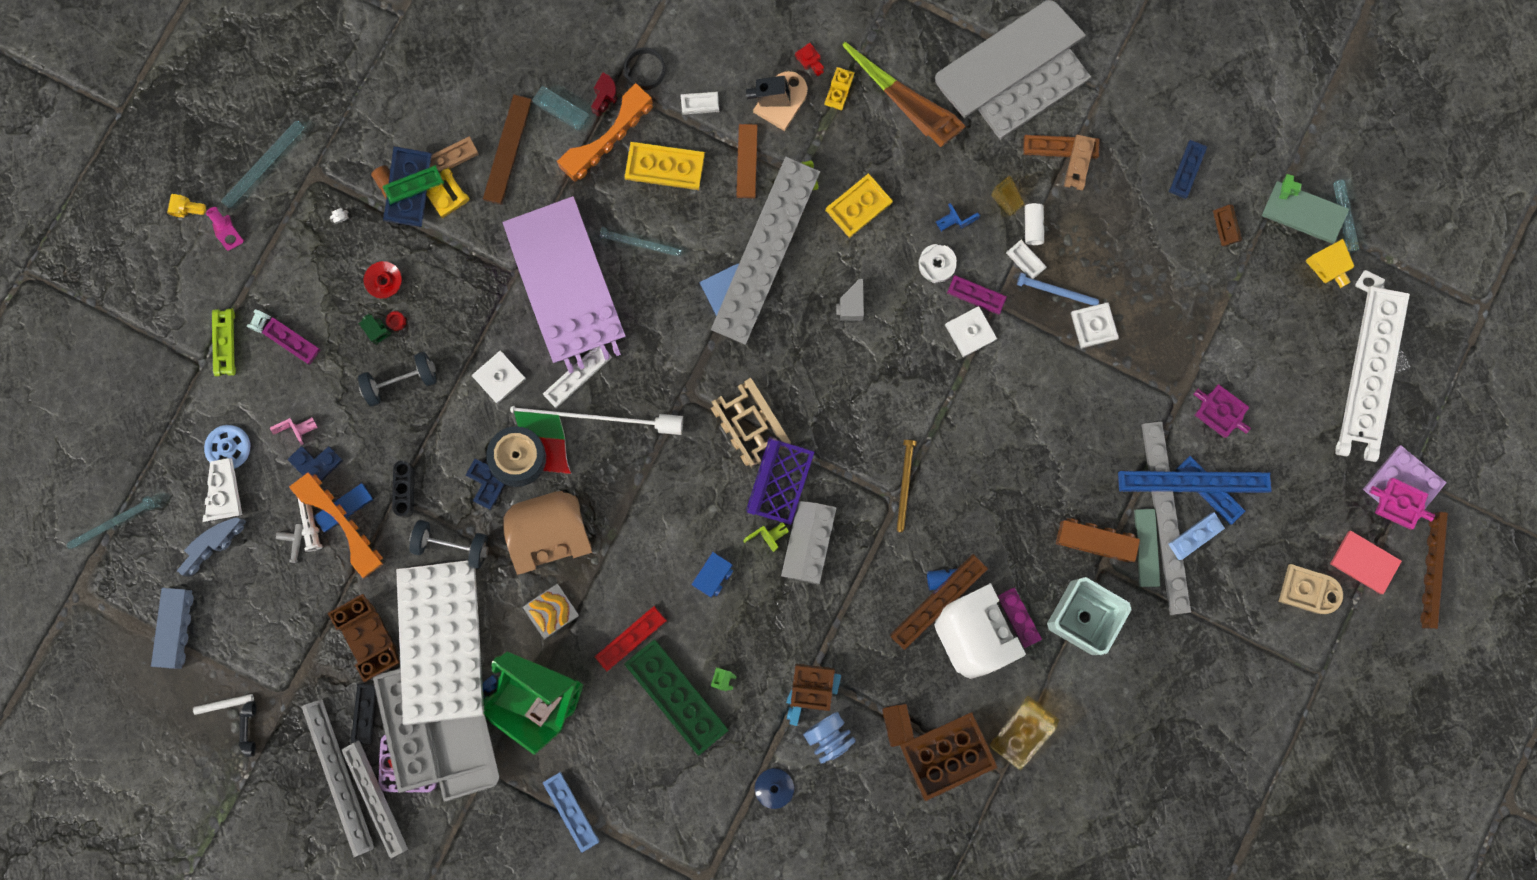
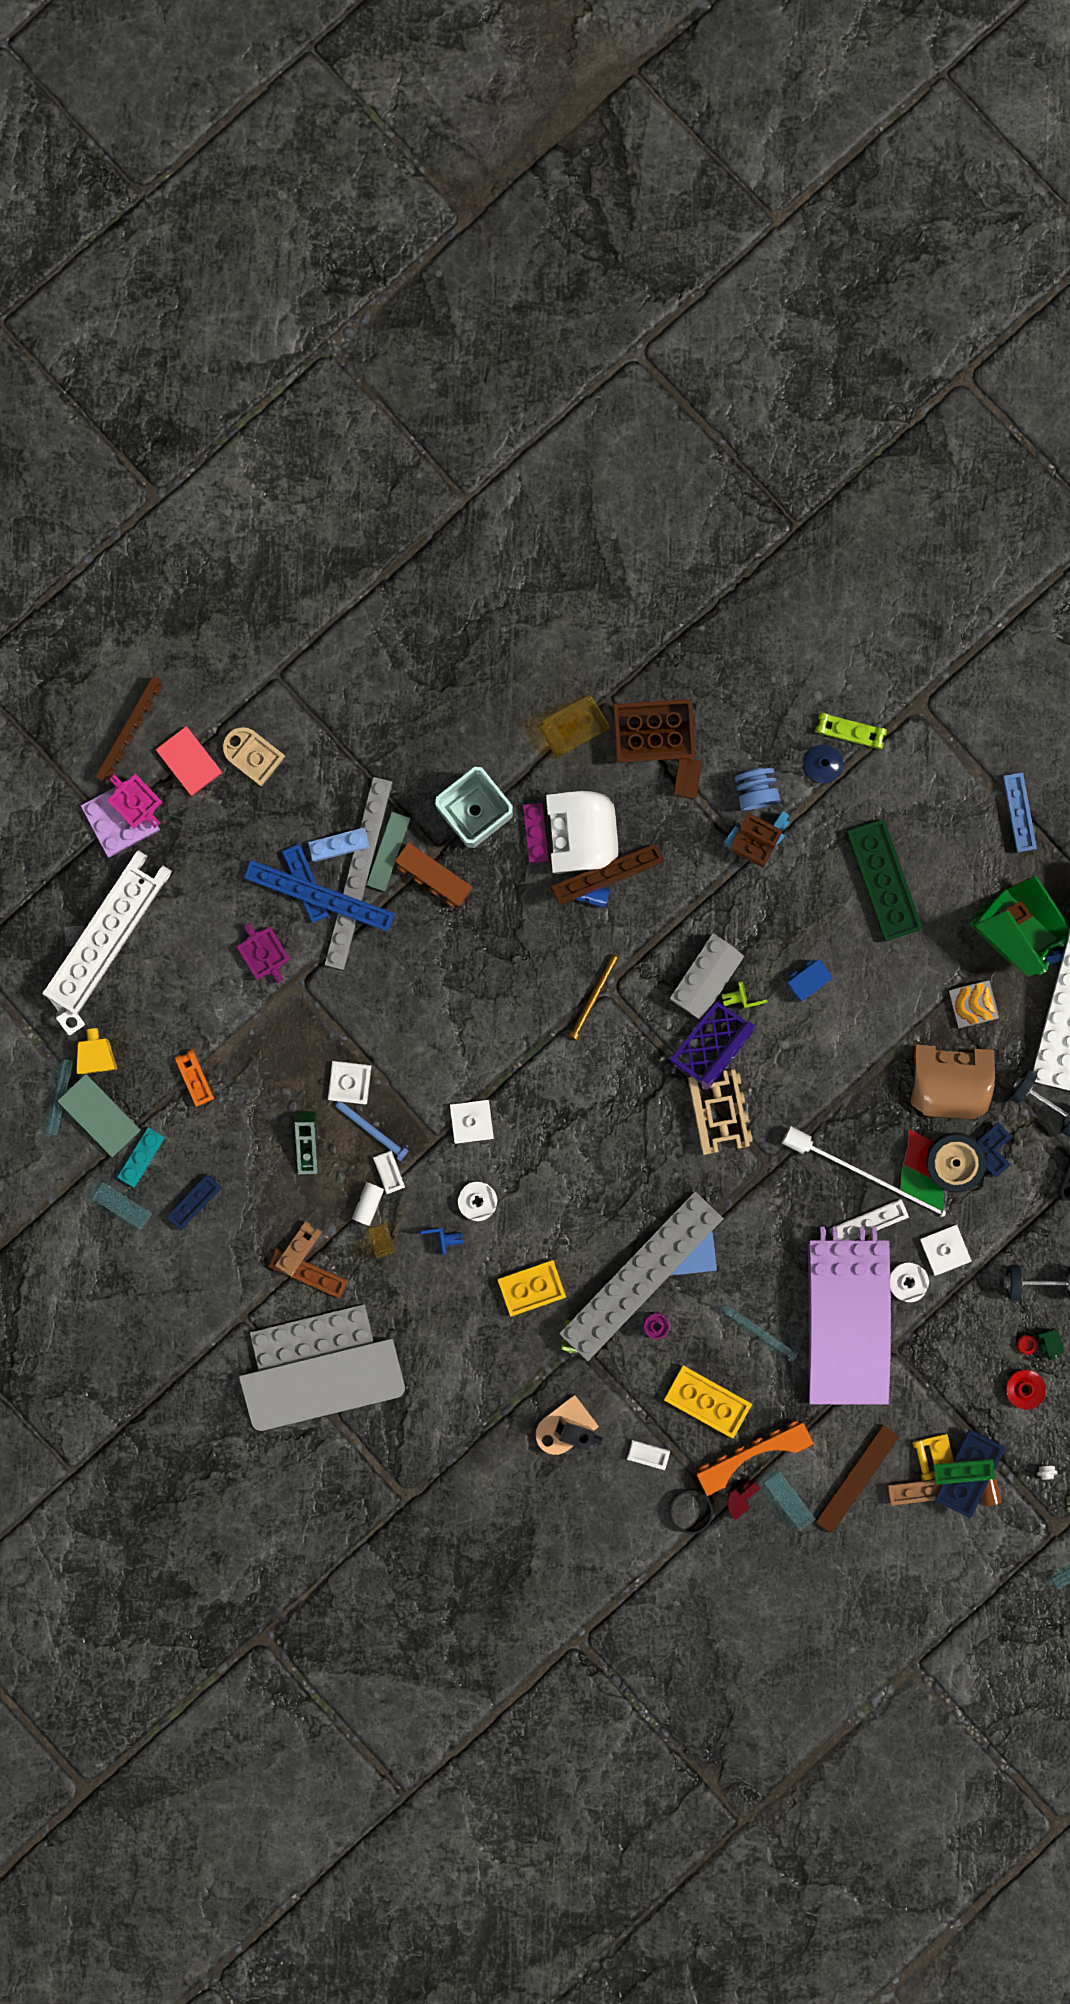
camera: 155 degrees left, 5 degrees up
(523, 325) = (914, 1272): none -> white plate
(630, 638) = (907, 951): red tile -> none
(721, 679) = (836, 880): bright green tile -> none
(735, 212) = (656, 1325): none -> magenta wheel
(746, 161) = (624, 1376): dark orange tile -> none
(760, 830) = (850, 731): none -> lime plate
(810, 58) = (521, 1460): red plate -> none
(839, 88) = (504, 1416): yellow slope -> none
(852, 303) = (577, 1192): light grey slope -> none
(926, 115) = (429, 1353): dark orange plate -> none
(976, 294) = (451, 1156): magenta tile -> none
(1112, 258) = (306, 1142): none -> dark green slope
(1227, 225) = (180, 1131): reddish brown plate -> none
(1235, 276) = (194, 1078): none -> orange plate
(1249, 142) = (122, 1205): none -> clear light blue plate
(1250, 191) = (141, 1157): none -> teal plate
(1289, 187) = (106, 1144): bright green tile -> none

